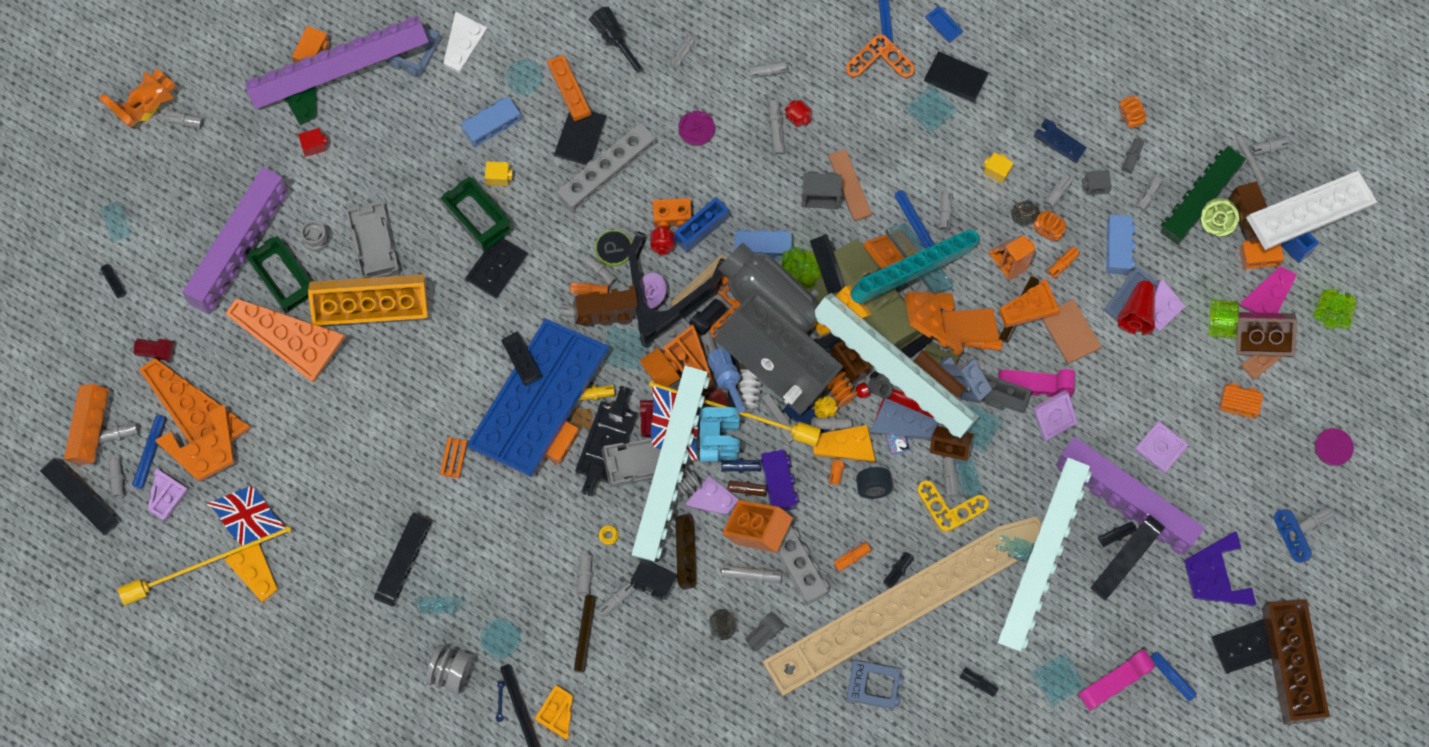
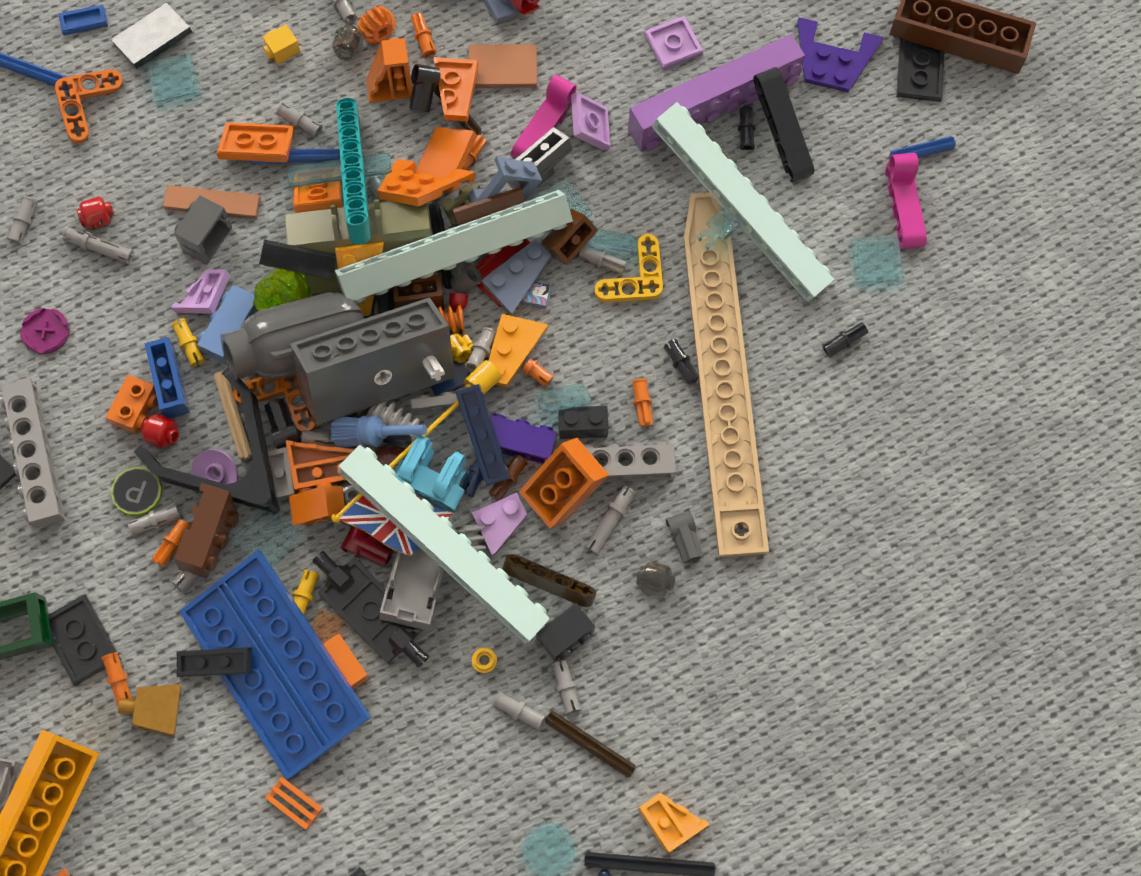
camera: 65 degrees left, 0 degrees up
(472, 337) = (154, 708): none -> pearl gold torso
(481, 303) = (116, 676): none -> orange pin
(735, 224) = (188, 342): none -> yellow pin
(765, 453) = (482, 434): none -> dark blue tile
(777, 216) = (204, 294): none -> lavender wing
(813, 520) = (583, 422): none -> black brick
(823, 497) = (563, 397): none -> clear light blue tile
(857, 684) = (790, 463): sand blue window -> none
(874, 482) = (572, 337): black wheel -> none
(910, 191) = (256, 142): none -> orange tile
(1020, 281) = (424, 82): none -> black piece

